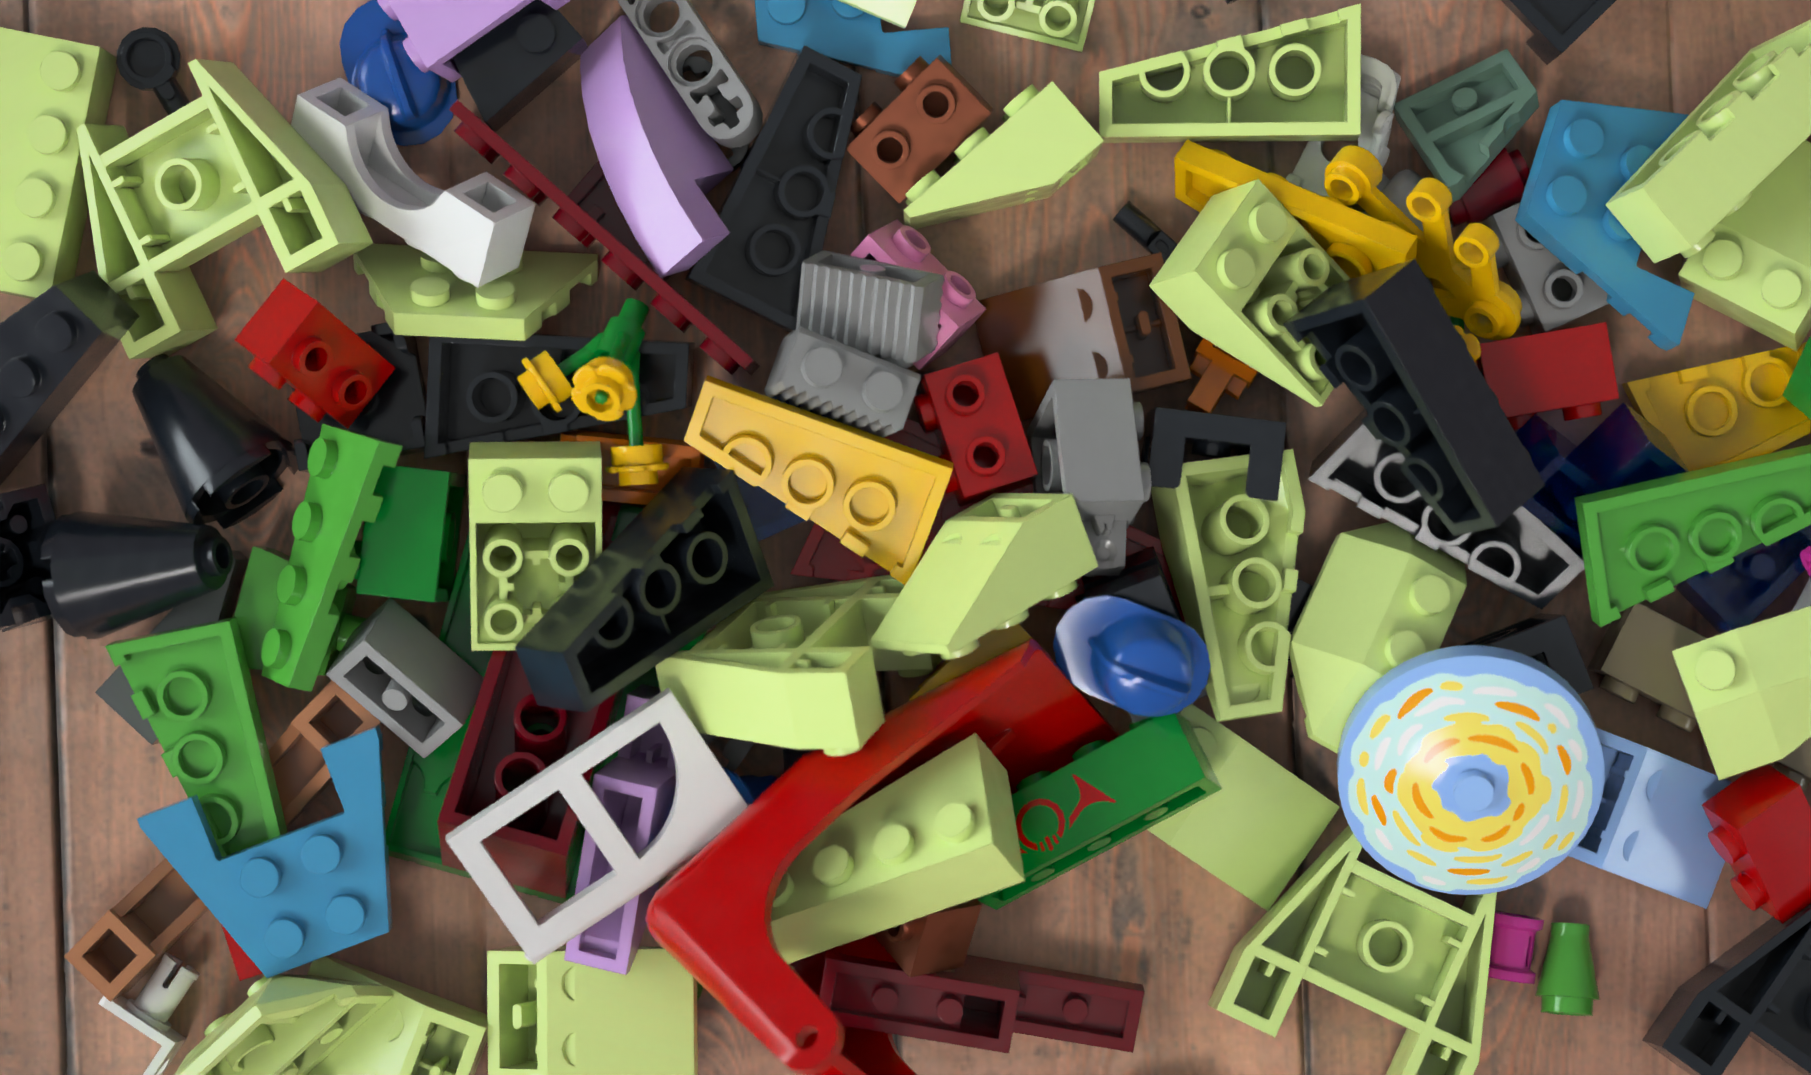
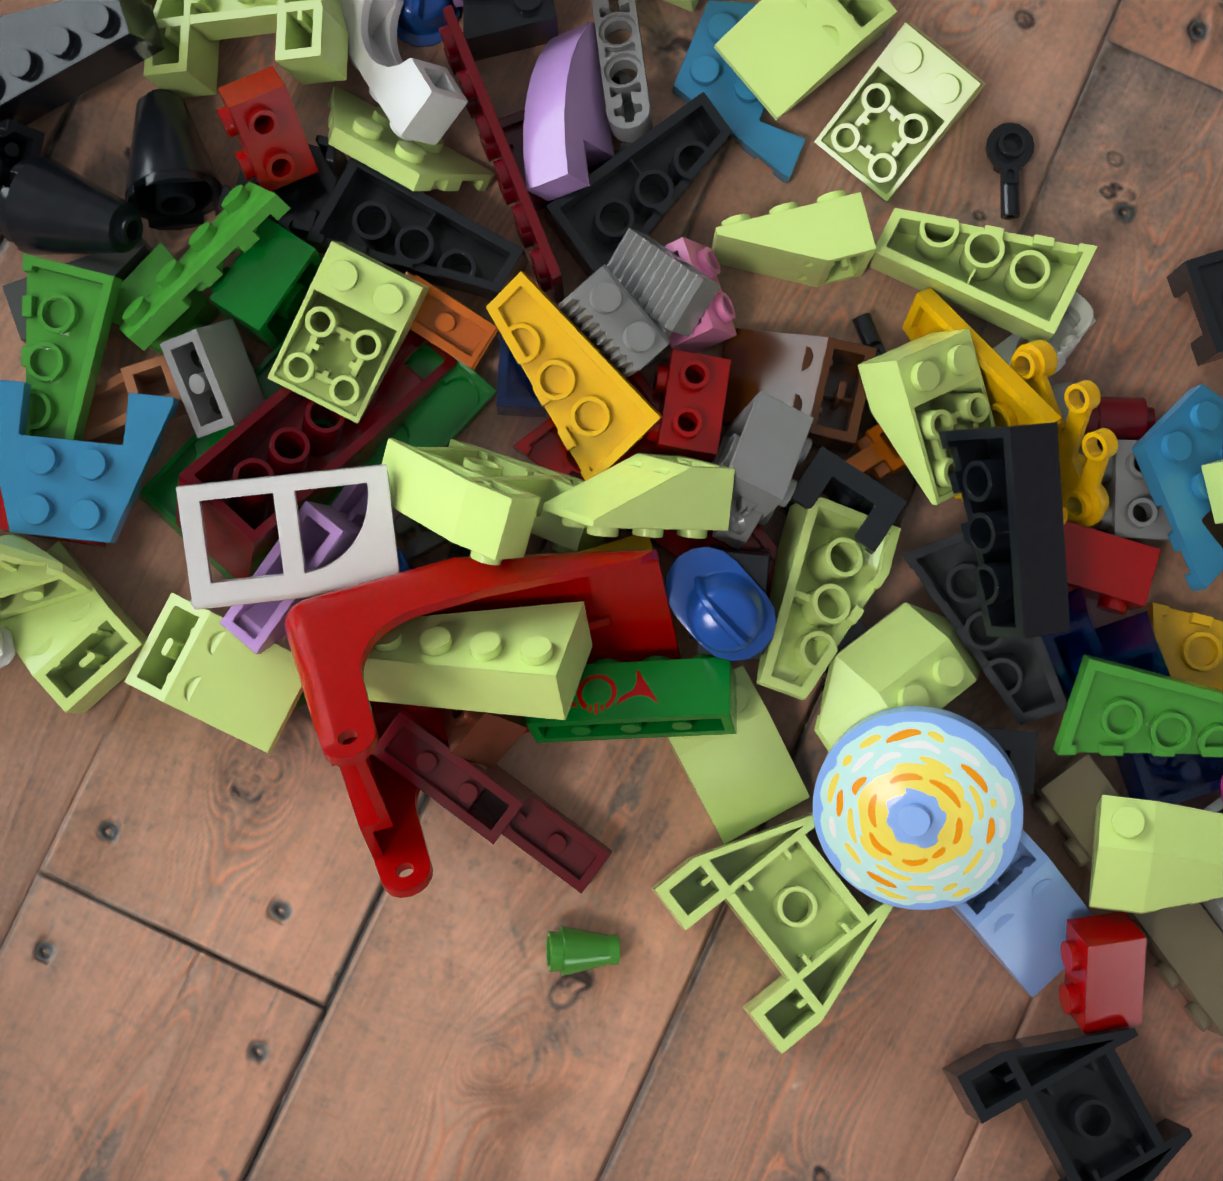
camera: 25 degrees right, 5 degrees down
(604, 389) = (450, 235): yellow plant -> none
(649, 592) = (412, 395): black wedge -> none
(918, 127) = (751, 184): copper brick -> none
(1468, 119) = (1130, 369): sand green wing -> none
(1513, 947) = (884, 955): dark pink bush -> none
(1568, 972) = (913, 993): bright green cone -> none

